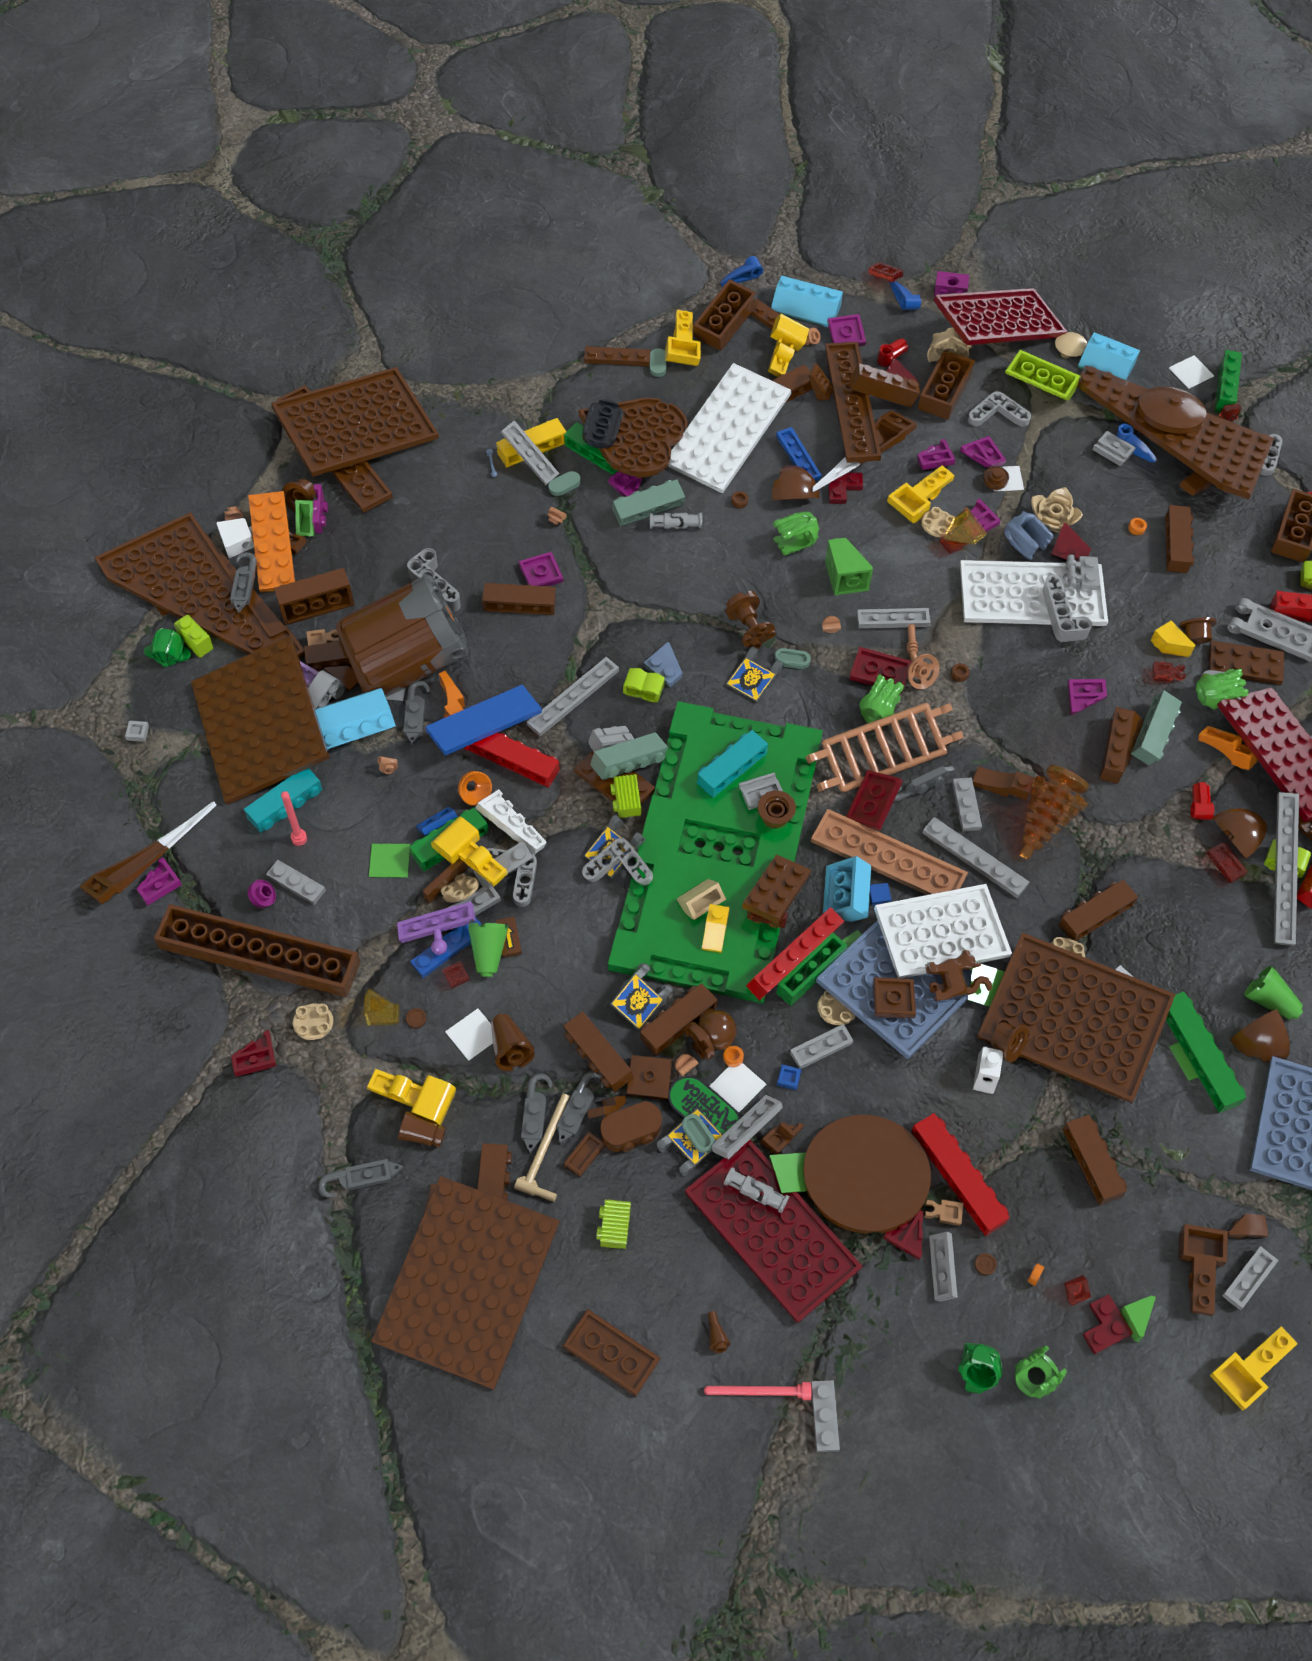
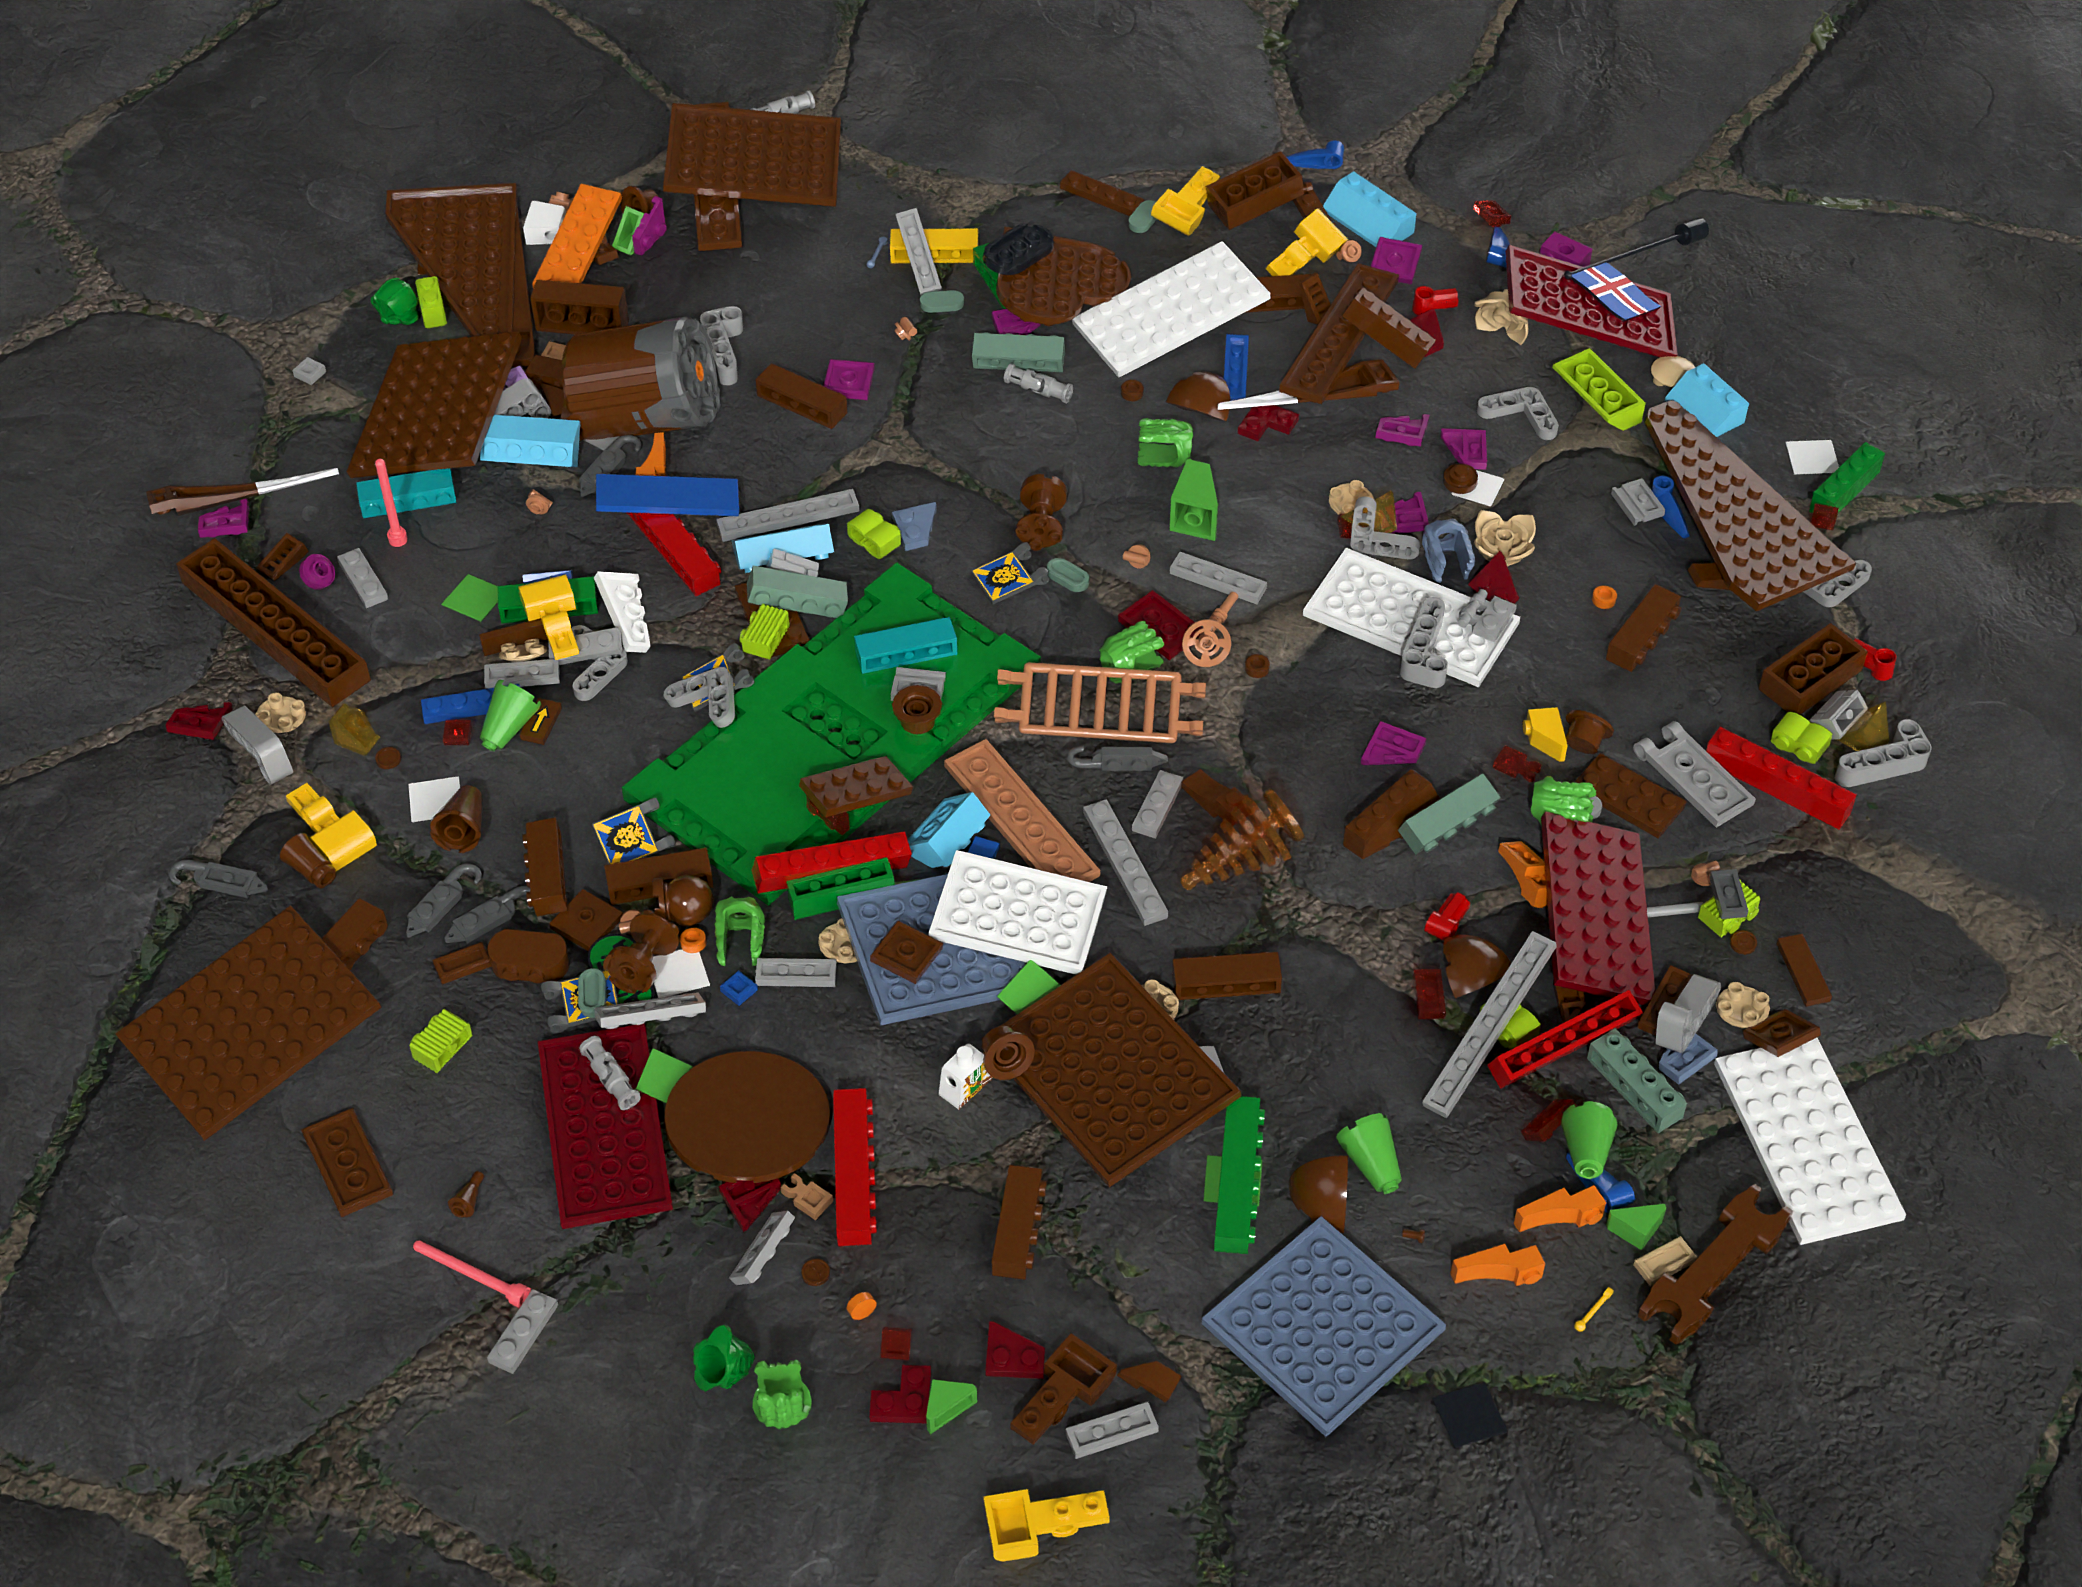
camera: 30 degrees right, 10 degrees down
(233, 880) = (282, 547): none -> reddish brown slope
(243, 582) = (517, 268): dark grey plate -> none
(315, 1052) = (259, 742): none -> light grey beam
(351, 370) = (790, 104): none -> light grey piece
(435, 923) = (469, 671): medium lavender plate -> none
(482, 787) = (597, 552): orange piece -> none
(528, 1184) = (382, 964): tan bar -> none
(577, 727) = (801, 542): none -> medium azure slope
(609, 1106) = (524, 924): reddish brown slope -> none
(700, 897) = (768, 764): tan brick -> none
(715, 928) = (761, 798): yellow slope -> none
(717, 1100) = (632, 966): none -> reddish brown piece
(765, 1020) = (728, 920): none -> bright green piece
(781, 1136) = (684, 1041): reddish brown slope -> none
(874, 799) = (1045, 749): dark red tile -> none
(913, 501) = (1335, 464): yellow plate -> none
(946, 384) = (1472, 356): reddish brown brick -> none
(953, 978) = (988, 961): reddish brown animal -> none
(972, 546) = (1368, 535): none -> light grey beam
(1004, 297) = (1616, 290): none -> flag
(1150, 1256) = (1013, 1354): none -> dark red wing
(1171, 410) = (1736, 480): reddish brown dish -> none

